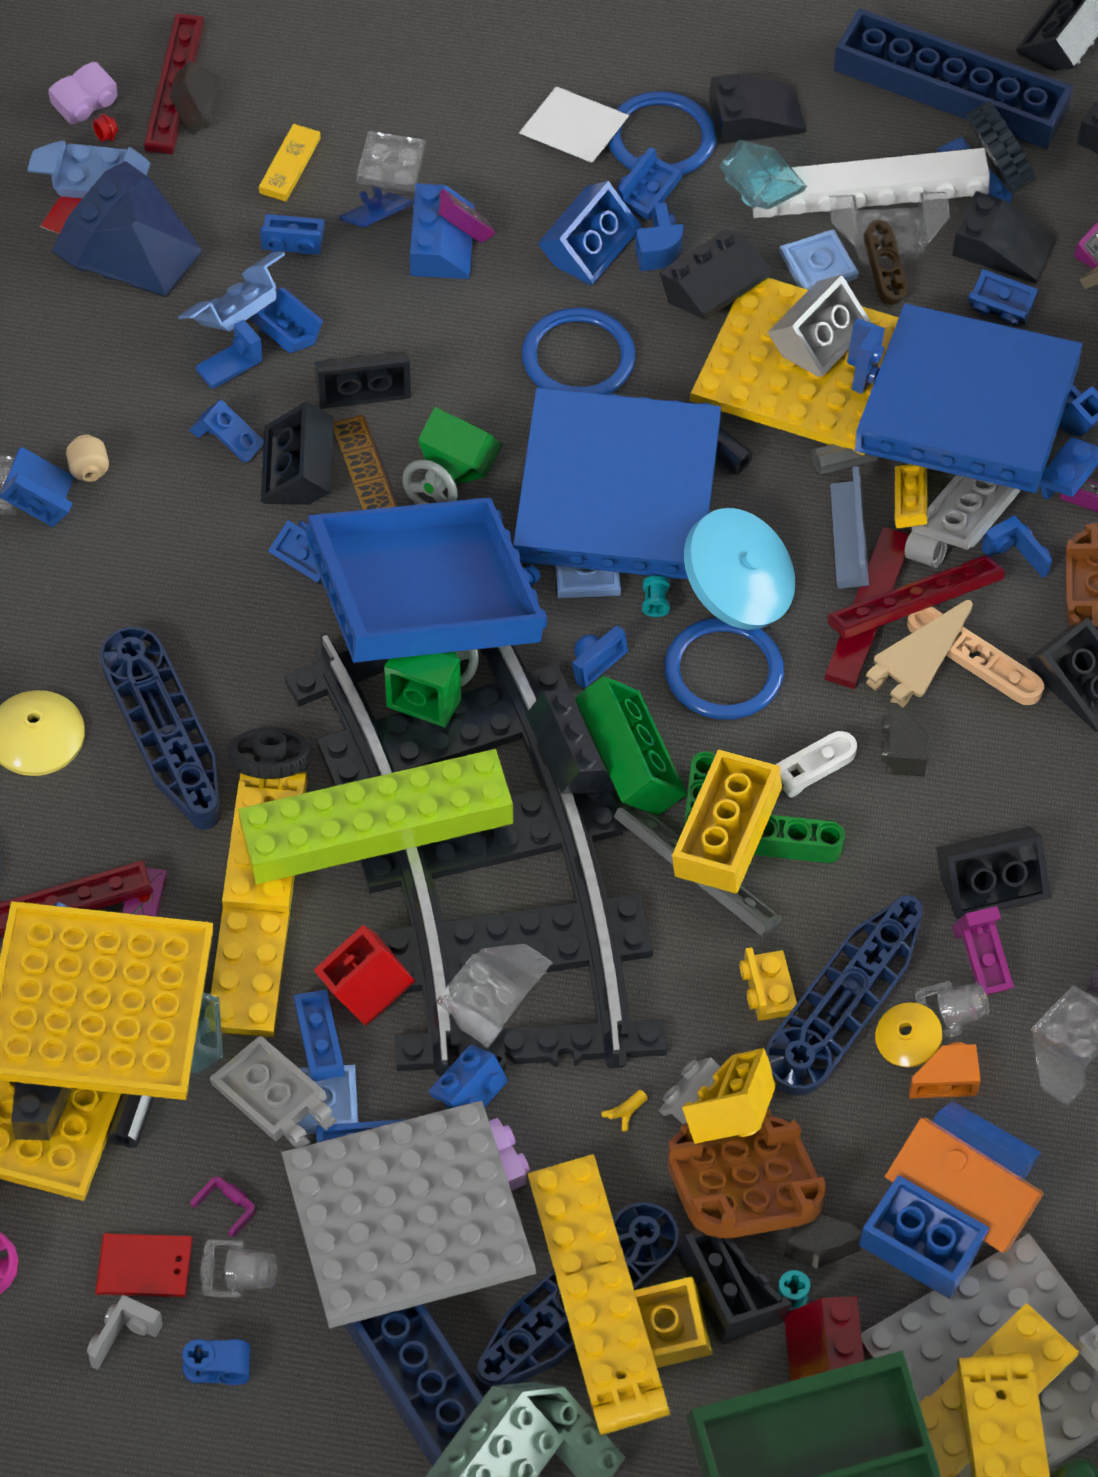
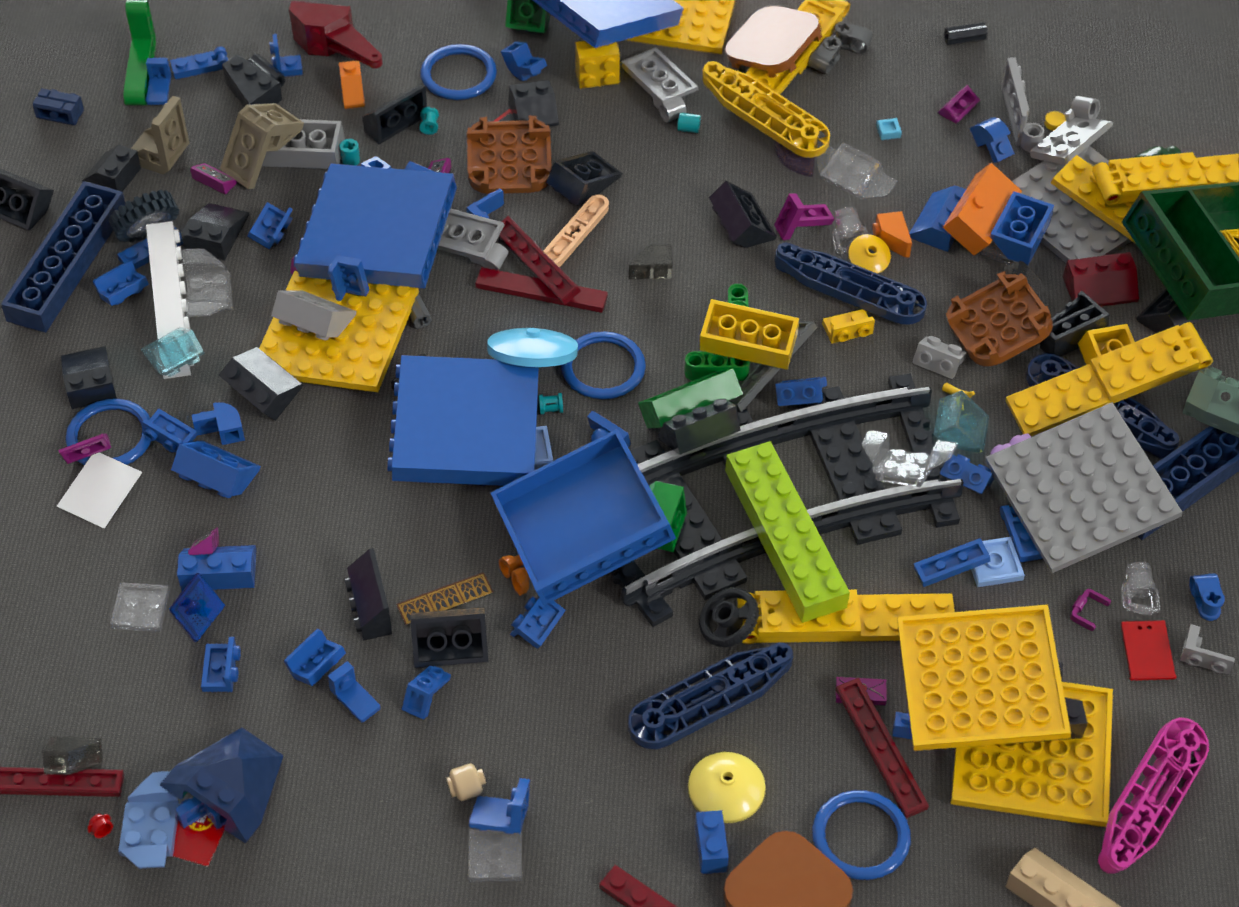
camera: 95 degrees left, 5 degrees down
(83, 93) = (60, 846): lavender brick -> none
(241, 298) = (297, 688): medium blue piece -> none
(273, 1092) = (1003, 580): light grey tile -> none
(289, 162) = (138, 682): yellow tile -> none
(364, 975) = (899, 539): red slope -> none
(453, 456) = (444, 527): green piece -> none
(562, 1098) = (961, 422): none -> clear light blue slope
(586, 315) = (338, 498): blue wedge -> none
(629, 101) = (85, 448): none -> magenta slope
(643, 890) = (800, 391): none -> blue bracket
(735, 1099) = (952, 319): yellow wedge -> none
(797, 1281) = (1065, 298): teal bush -> none
(817, 761) = (674, 309): white plate -> none
(818, 259) = (235, 332): light blue tile -> none
(849, 533) = (483, 295): sand blue panel -> none
(890, 250) = (255, 288): dark brown beam -> none
(903, 134) = (120, 283): none -> blue bracket
(910, 496) = (457, 263): yellow tile -> none
(918, 655) = (584, 258): tan flag -> none

